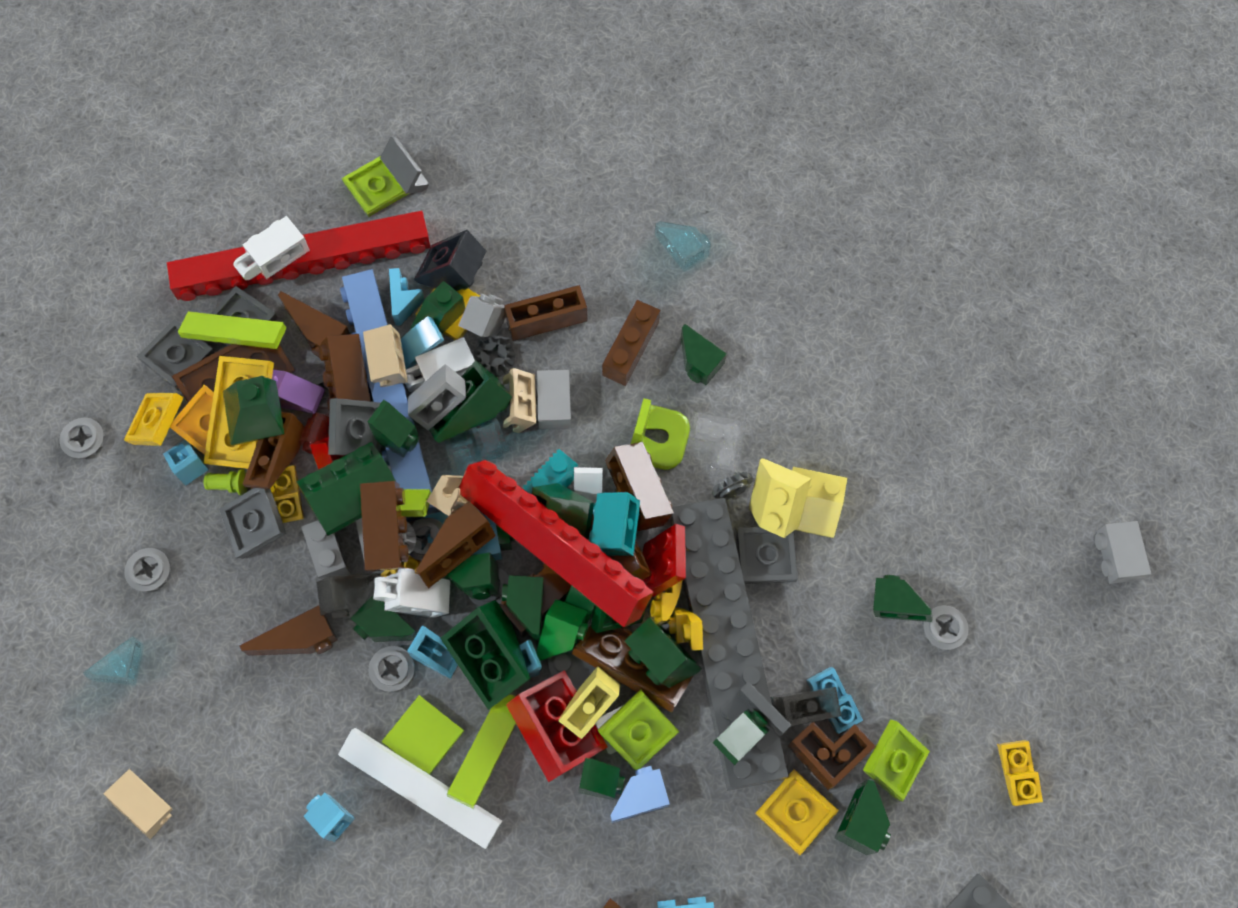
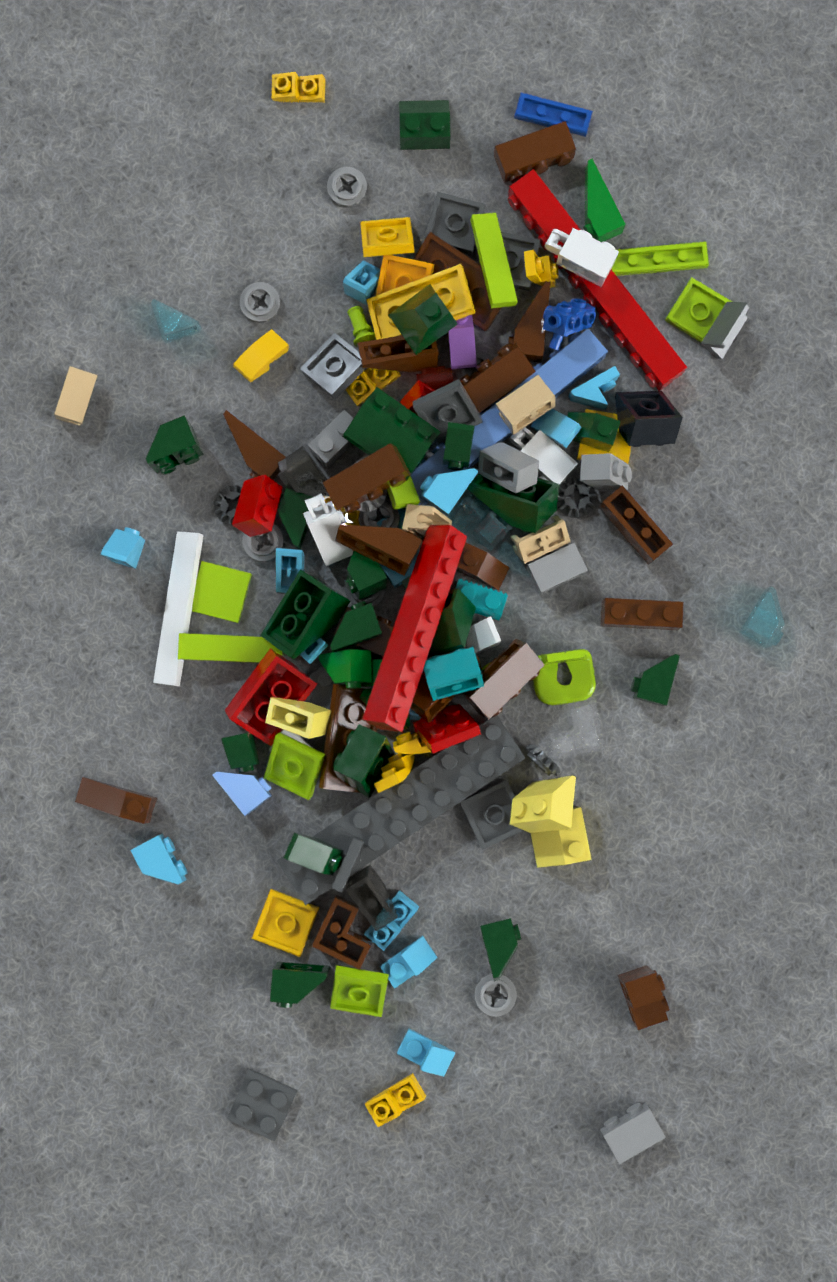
camera: 70 degrees right, 15 degrees up
(67, 342) = (424, 124): none -> dark green slope
(125, 230) = (549, 113): none -> blue tile
(148, 261) = (535, 151): none -> reddish brown brick
(201, 591) = (260, 354): none -> yellow slope
(230, 223) = (601, 213): none -> green slope
(248, 714) = (174, 445): none -> dark green slope
(263, 294) = (540, 269): none -> yellow slope
(313, 192) = (661, 259): none -> lime tile
(324, 290) = (567, 319): none -> blue brick
(353, 686) = (221, 505): none -> dark grey gear
(354, 654) = (257, 505): none -> red brick
(429, 460) = (446, 488): none -> medium azure slope
(521, 463) = (482, 566): none -> reddish brown slope
(882, 699) = (409, 962): none -> medium azure slope
(980, 721) = (425, 1052): none -> medium azure slope
(994, 486) = (644, 996): none -> reddish brown brick

